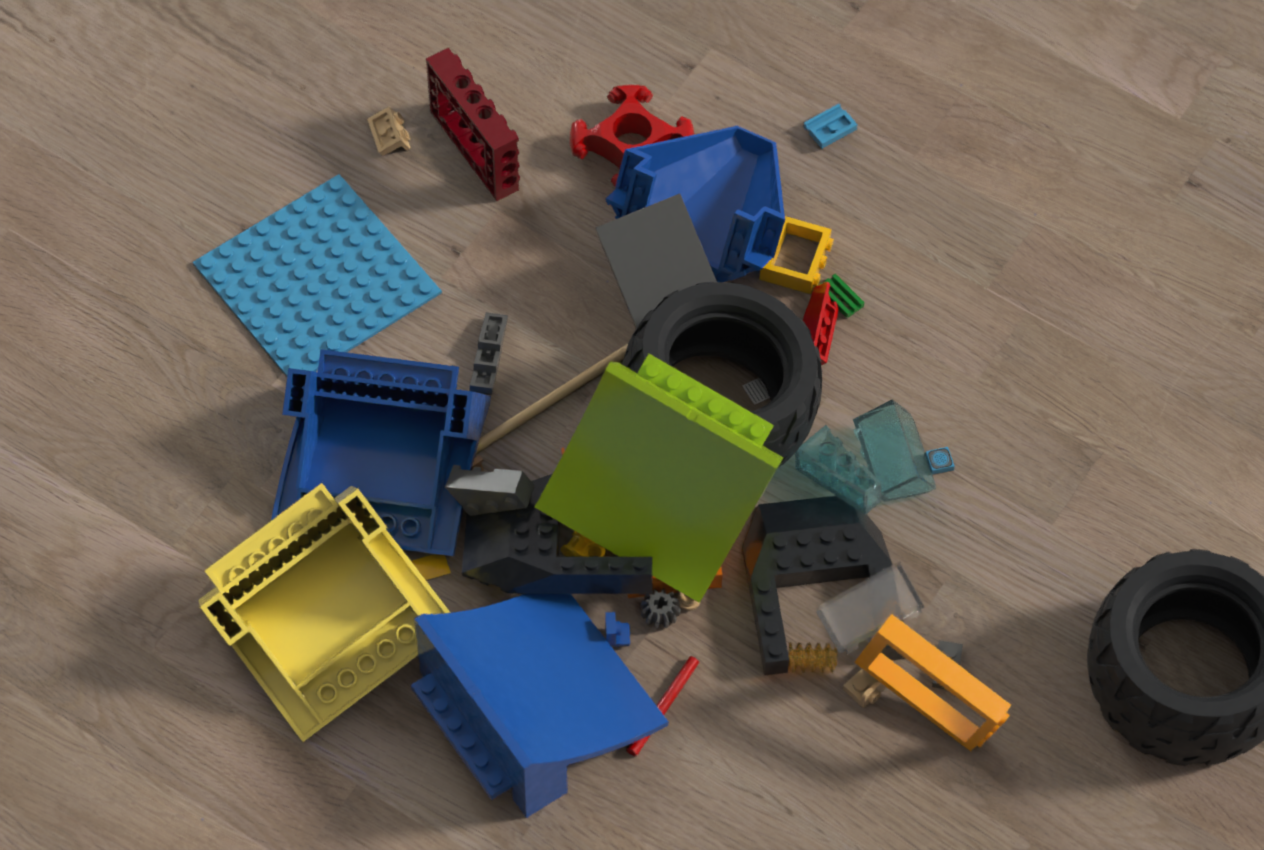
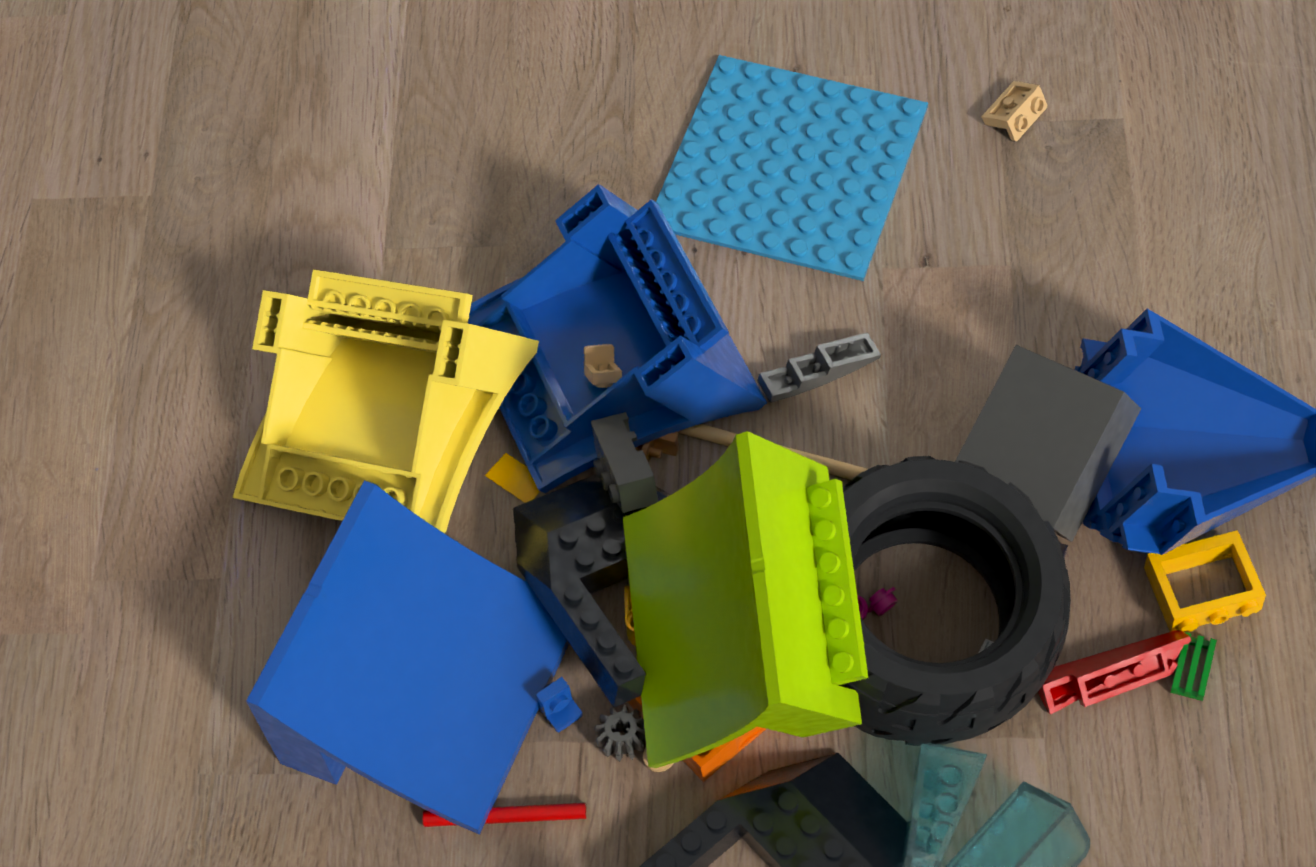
camera: 65 degrees right, 0 degrees up
(401, 465) = (600, 365): none -> tan bracket
(473, 124) = (1071, 162): dark red brick -> none
(628, 118) = (1224, 299): red piece -> none

